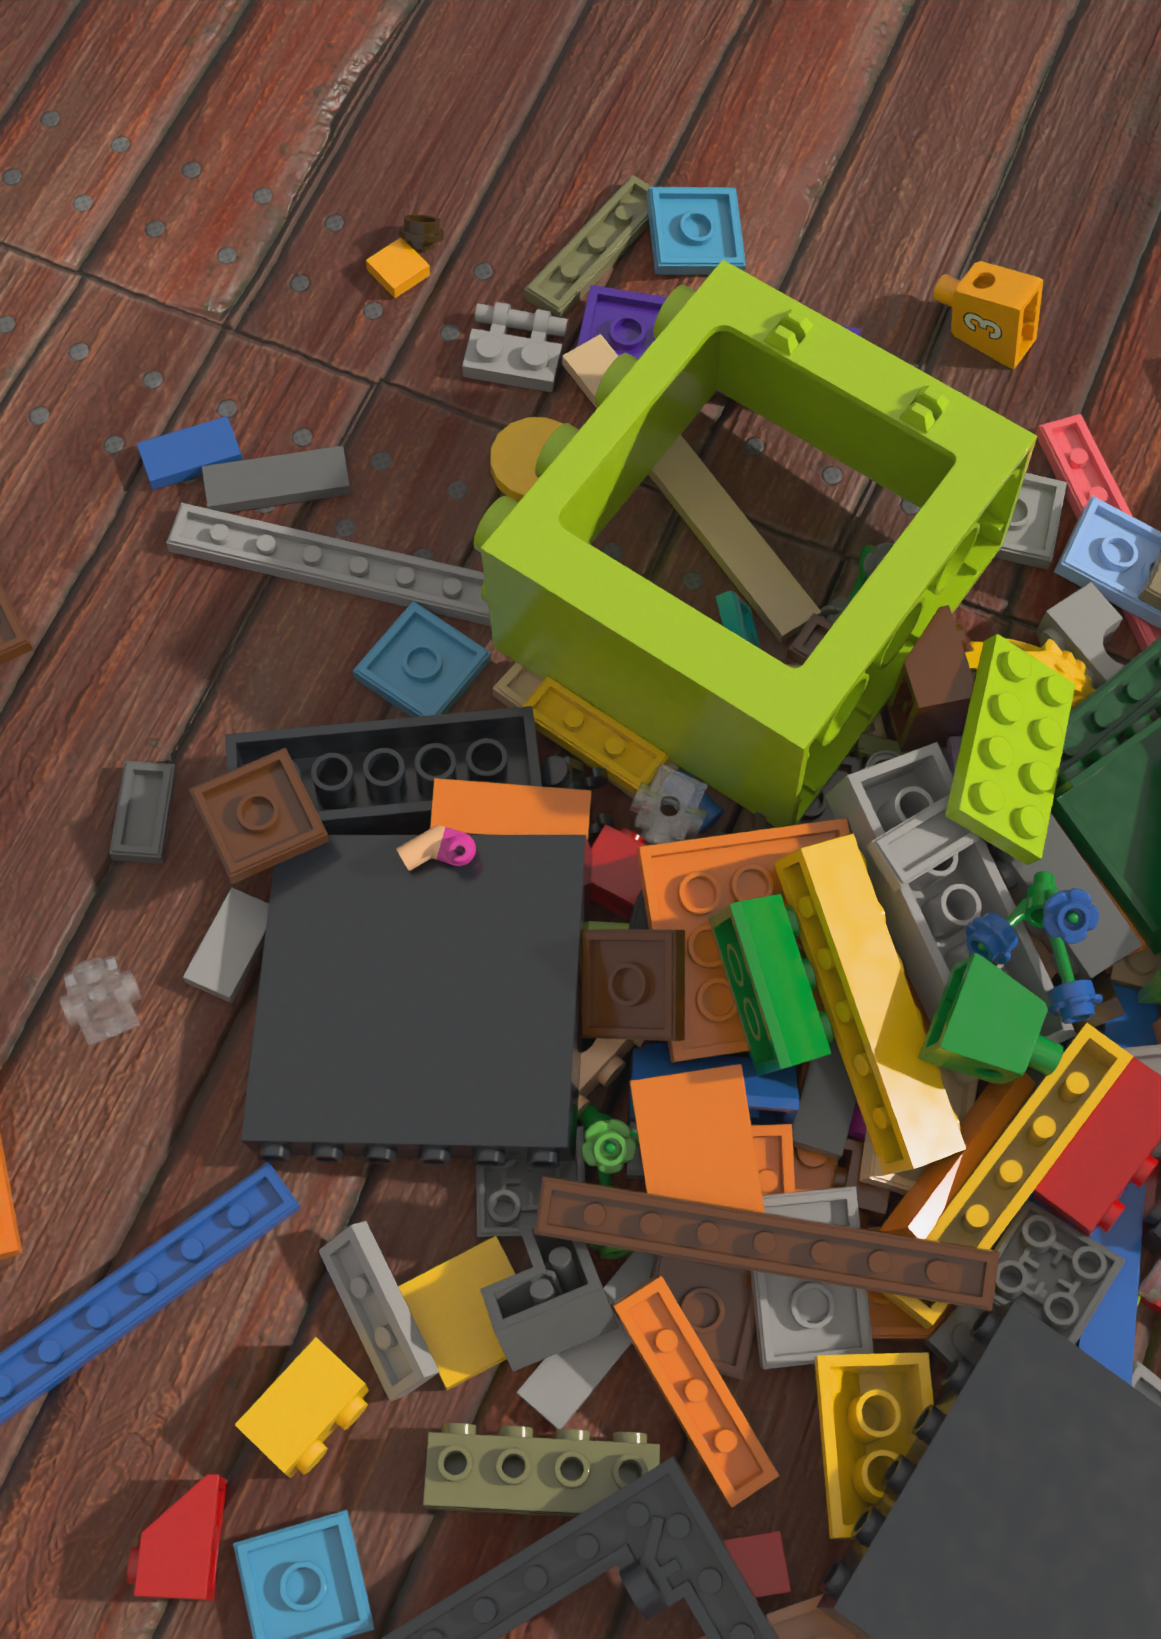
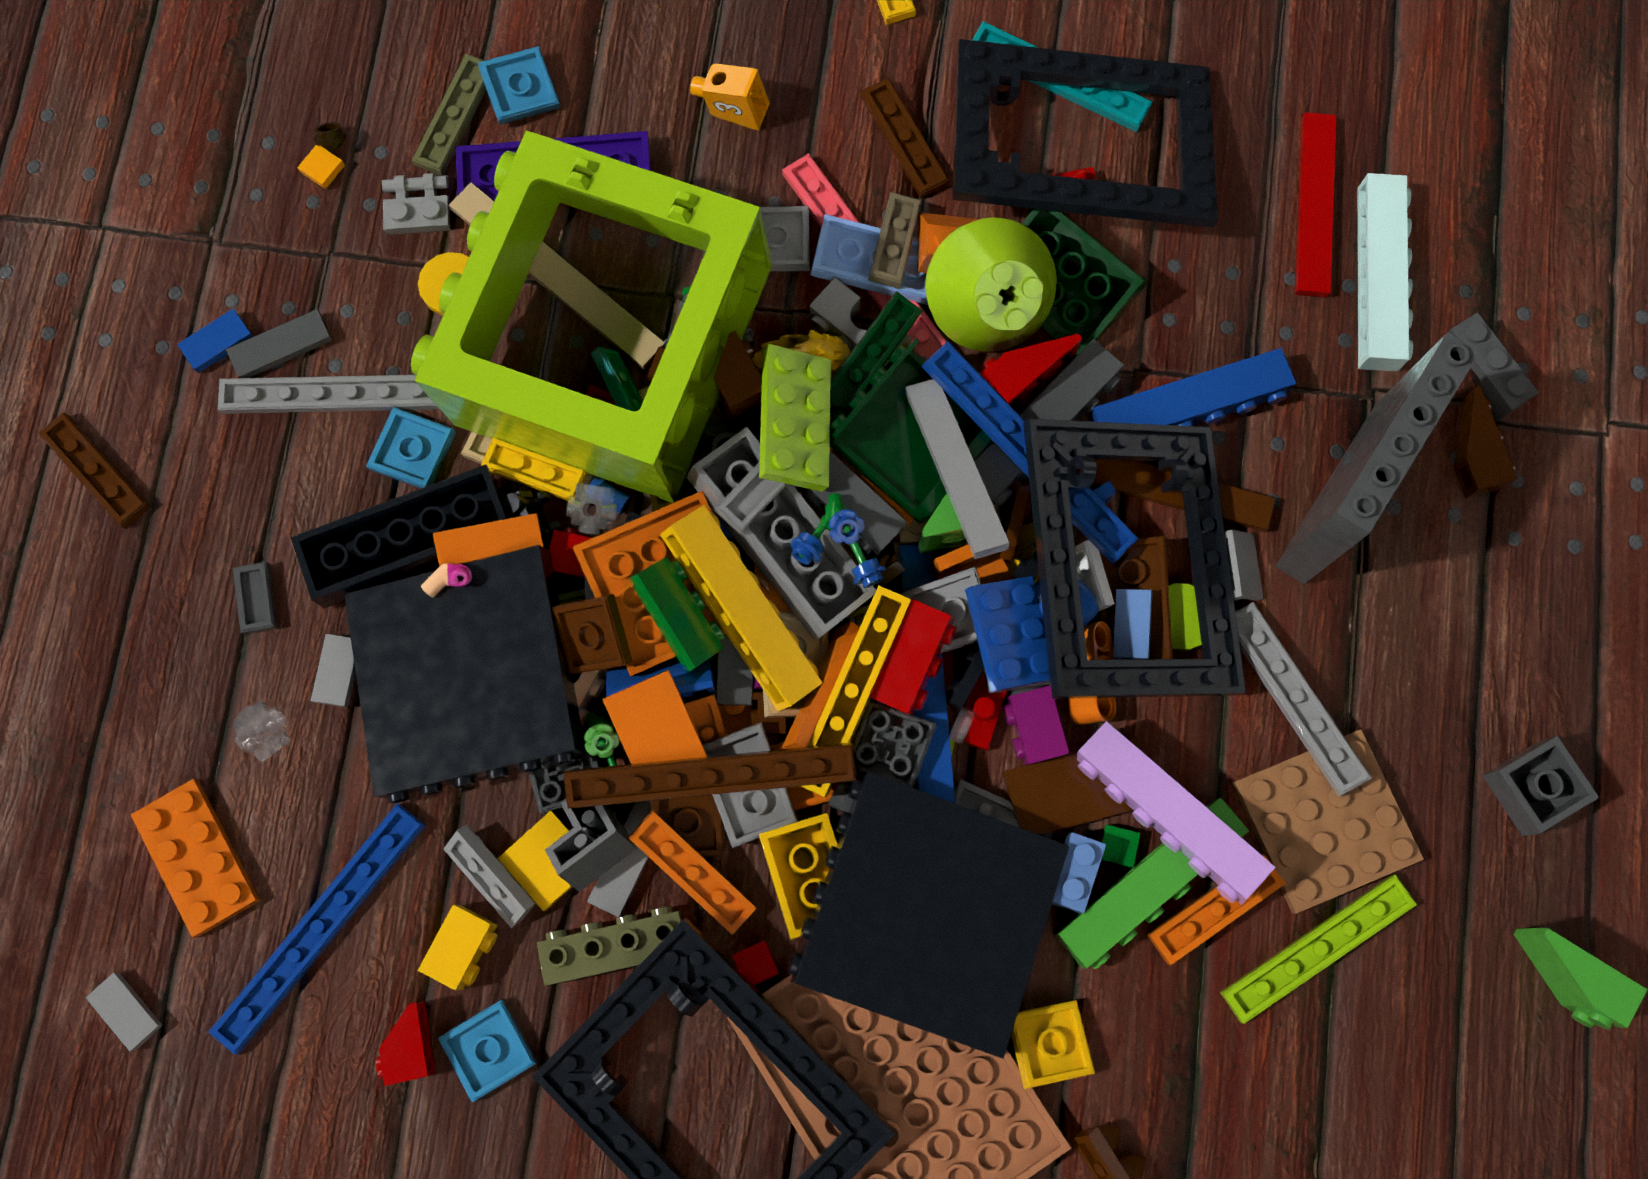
camera: 10 degrees left, 10 degrees up
(259, 815) = (326, 586): reddish brown tile -> none
(989, 1026) = (817, 605): green torso -> none

